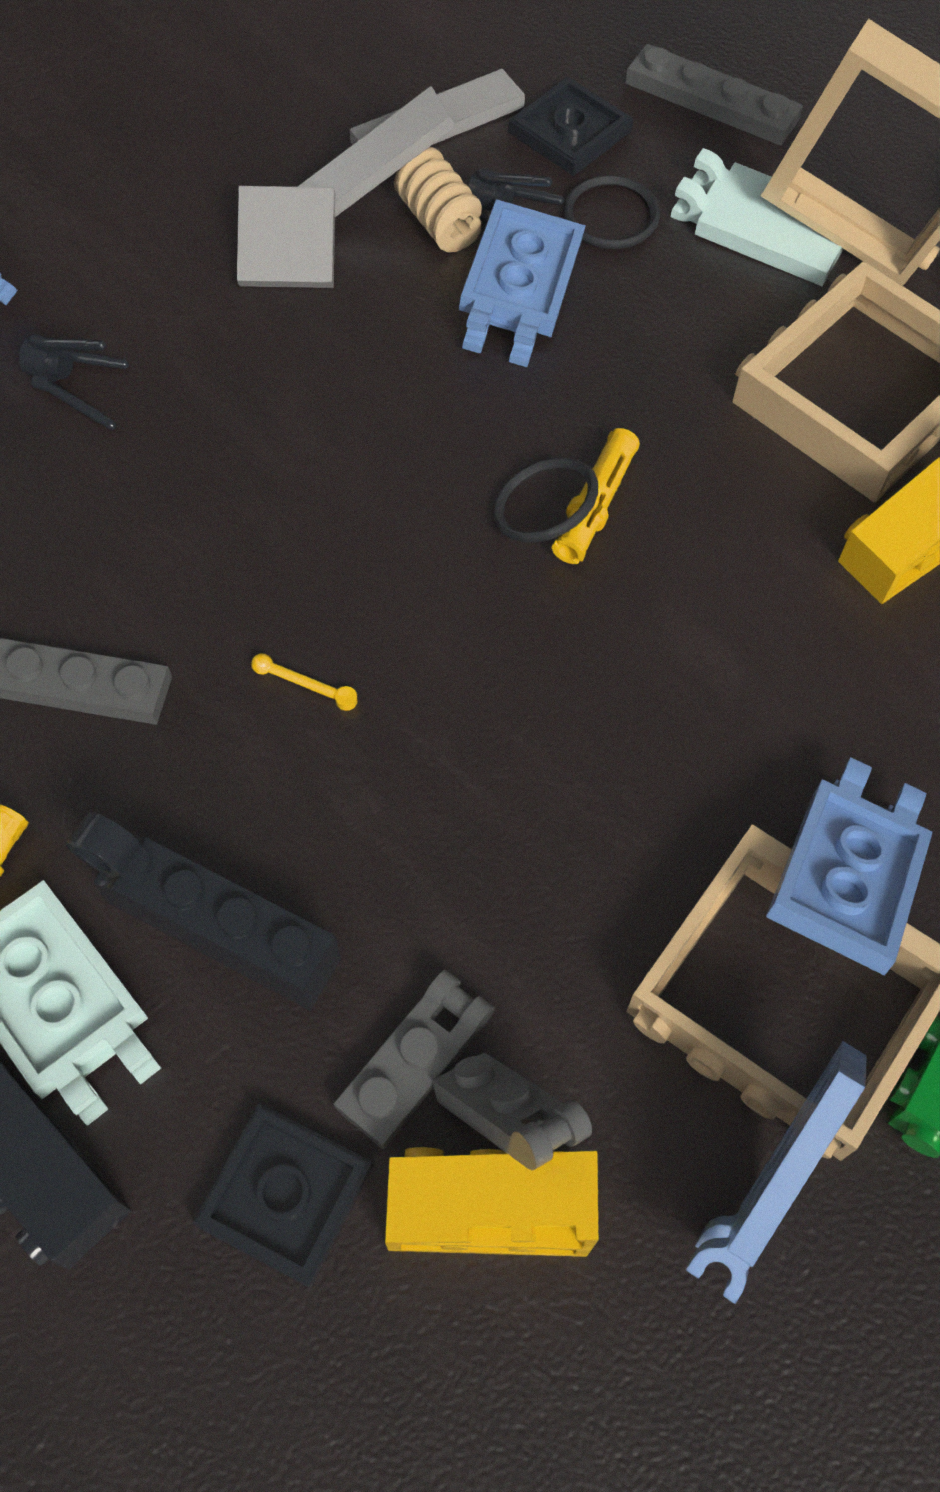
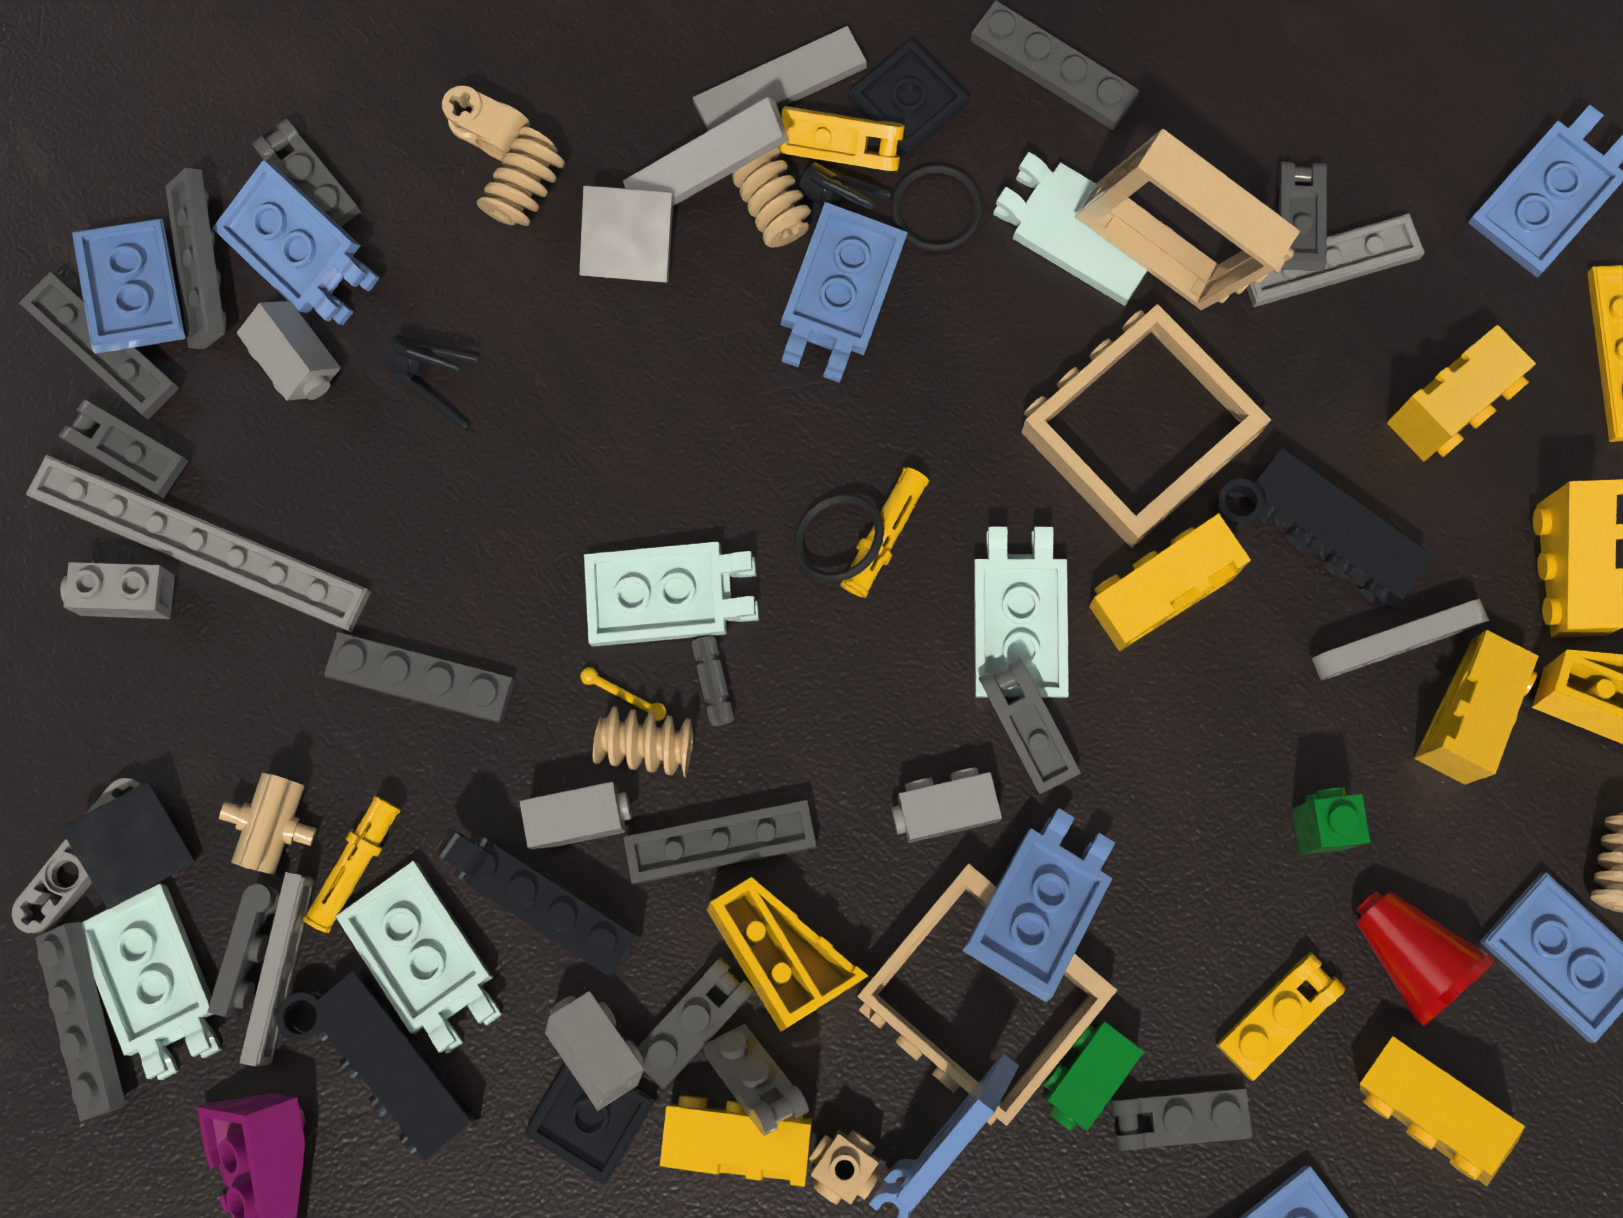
camera: 10 degrees right, 15 degrees up
(133, 155) = (488, 126): none -> tan piece
(172, 196) = (521, 178): none -> tan piece
(249, 808) = (575, 816): none -> light grey brick
(286, 1093) = (594, 1049): none -> light grey brick
(331, 721) = (643, 741): none -> tan piece
(351, 570) = (665, 593): none -> light aqua tile
(411, 658) = (712, 681): none -> dark grey axle
(434, 832) = (719, 842): none -> dark grey plate
(507, 149) = (840, 138): none -> yellow plate
(525, 954) = (780, 954): none -> yellow wedge
(624, 1246) = (843, 1147): none -> tan brick
(712, 771) = (946, 807): none -> light grey brick
(765, 573) = (1022, 613): none -> light aqua tile
(798, 676) = (1030, 727): none -> dark grey plate

